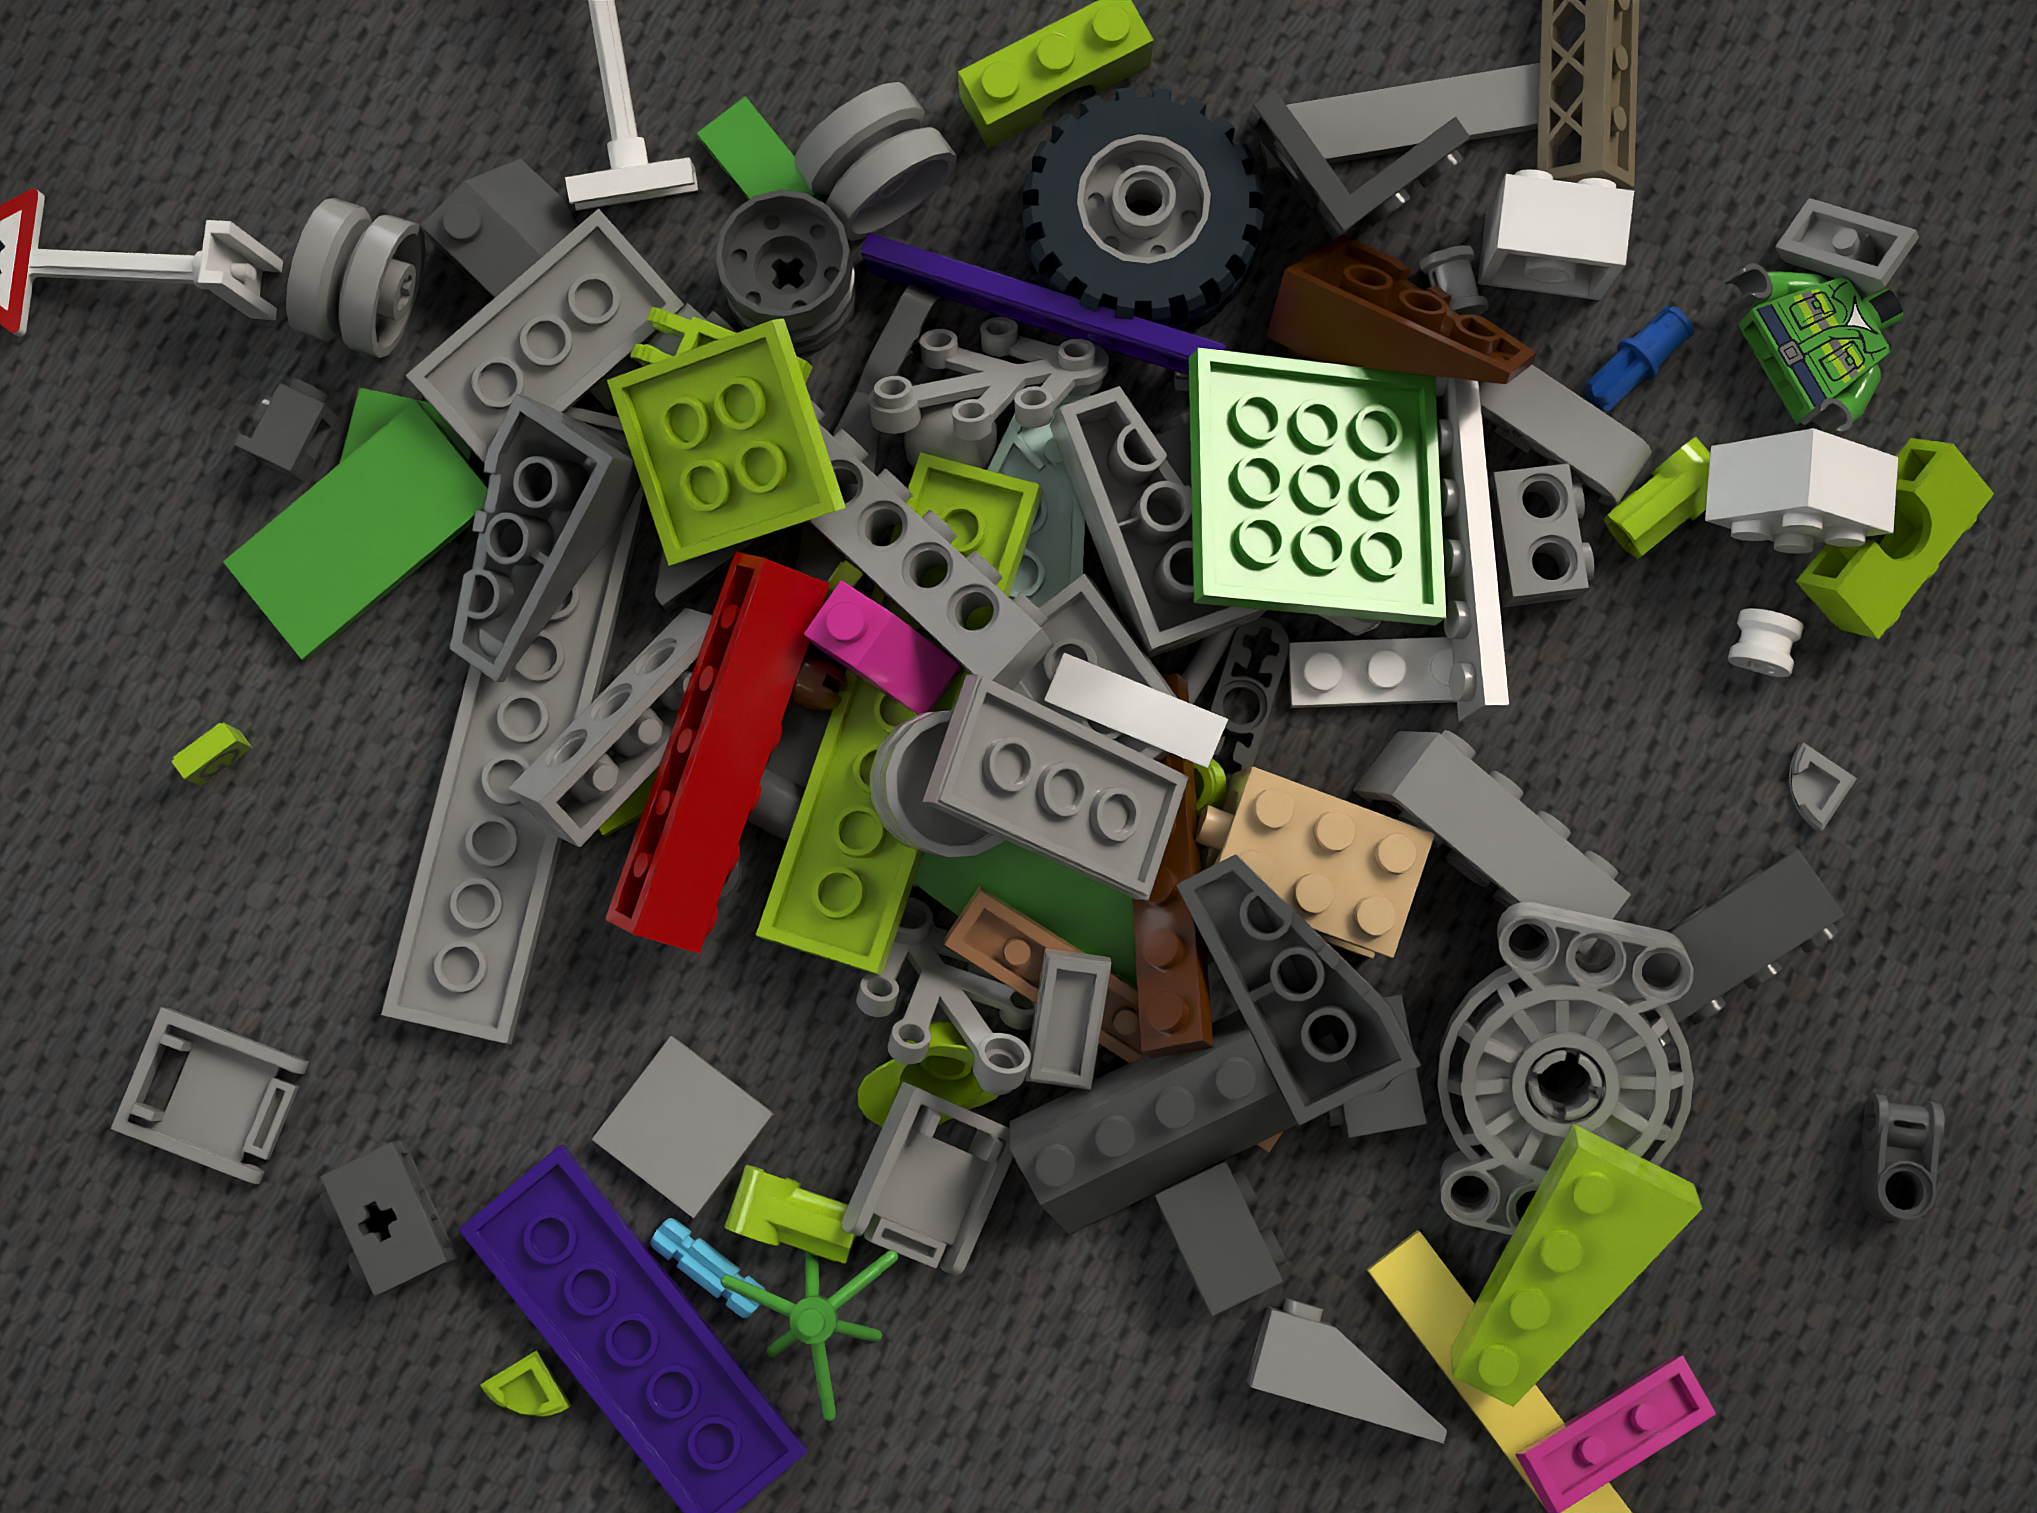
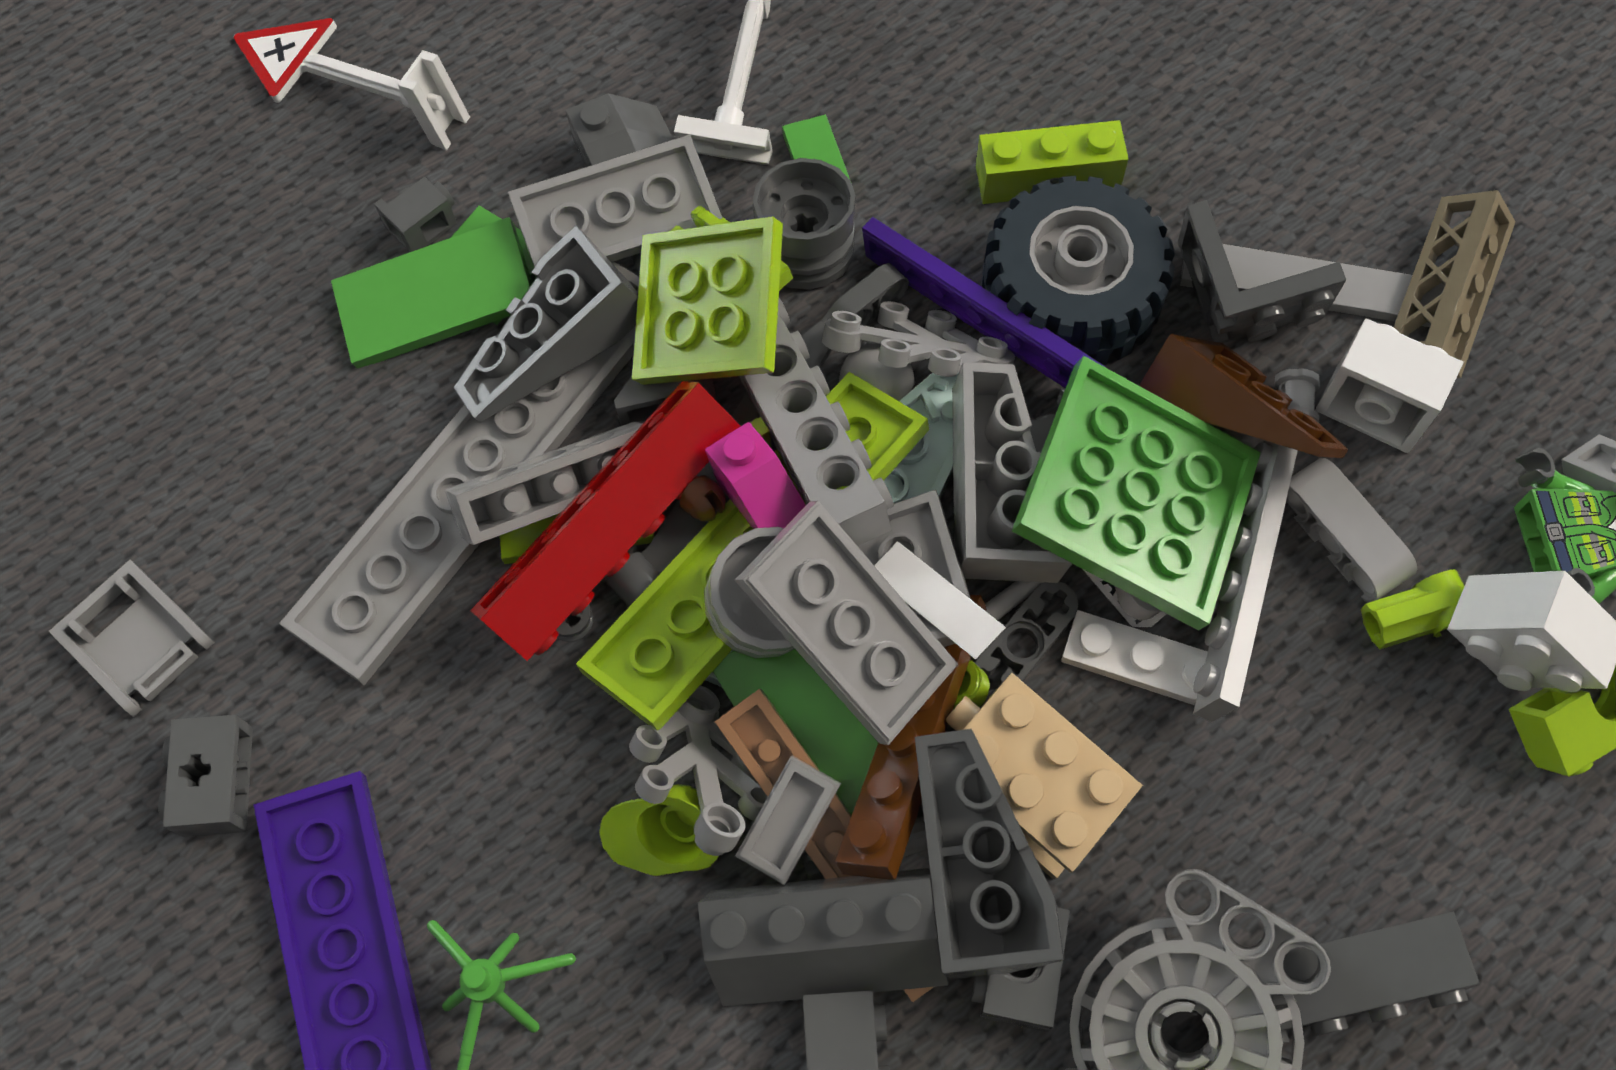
camera: 25 degrees right, 15 degrees down
(211, 753) = (256, 400): lime tile -> none
(355, 277) = (507, 128): light grey wheel -> none
(527, 1388) = (246, 954): lime tile -> none
(683, 1126) = (460, 798): light grey tile -> none
(702, 1264) = (422, 907): medium azure axle -> none
(781, 1211) = (501, 891): lime piece -> none
(875, 159) = (898, 170): light grey wheel -> none
(925, 1190) = (622, 918): light grey container -> none
(1489, 827) = (1193, 810): light grey wedge -> none
(1521, 535) = (1292, 596): light grey brick -> none
(1638, 358) = (1428, 500): blue axle -> none
(1765, 642) = (1469, 748): white wheel -> none
(1817, 786) = (1480, 882): light grey tile -> none

